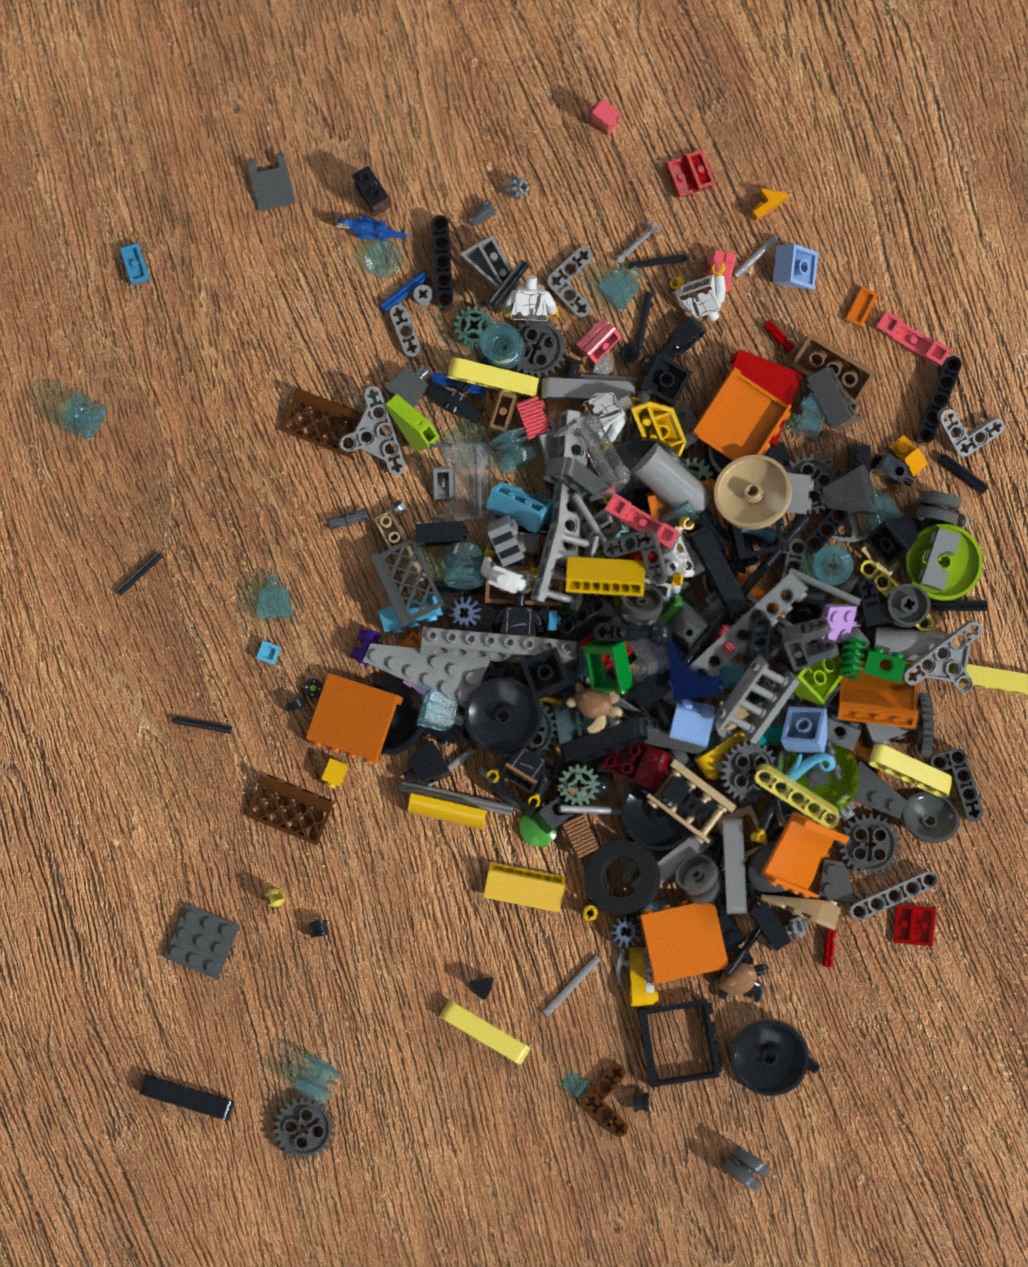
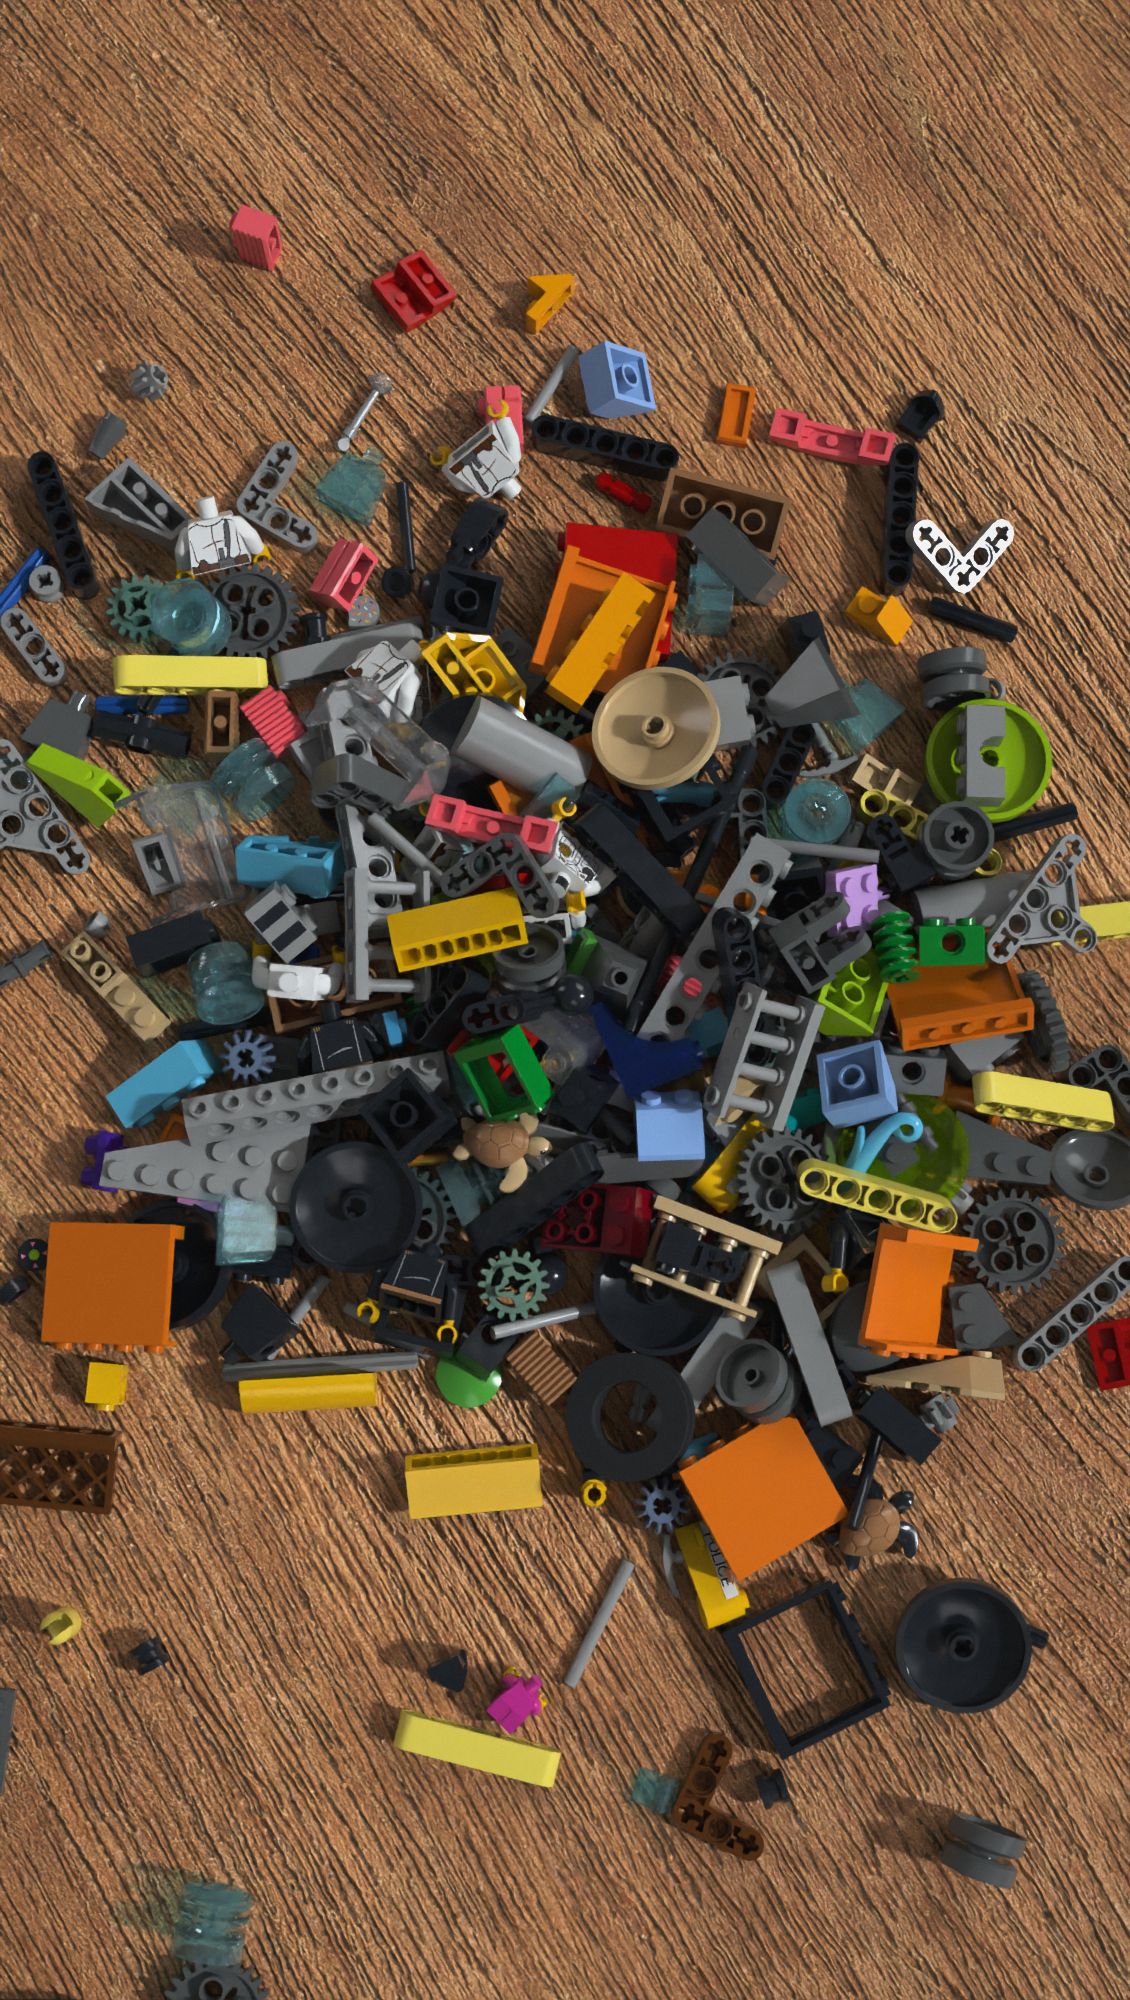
camera: 20 degrees left, 5 degrees down
(391, 585) = (121, 1058): dark grey fence -> none
(508, 284) = (172, 523): black axle -> none
(514, 1012) = (516, 1700): none -> dark pink piece
(658, 261) = (404, 432): black bar -> none
(734, 431) = (599, 643): none -> light orange wedge
(770, 297) = (593, 437): none -> black beam
(829, 947) = (1000, 1431): red axle -> none
(885, 465) = (861, 641): black torso -> none
(894, 538) = (898, 745): black slope -> none
(972, 339) = (922, 414): none -> black tile

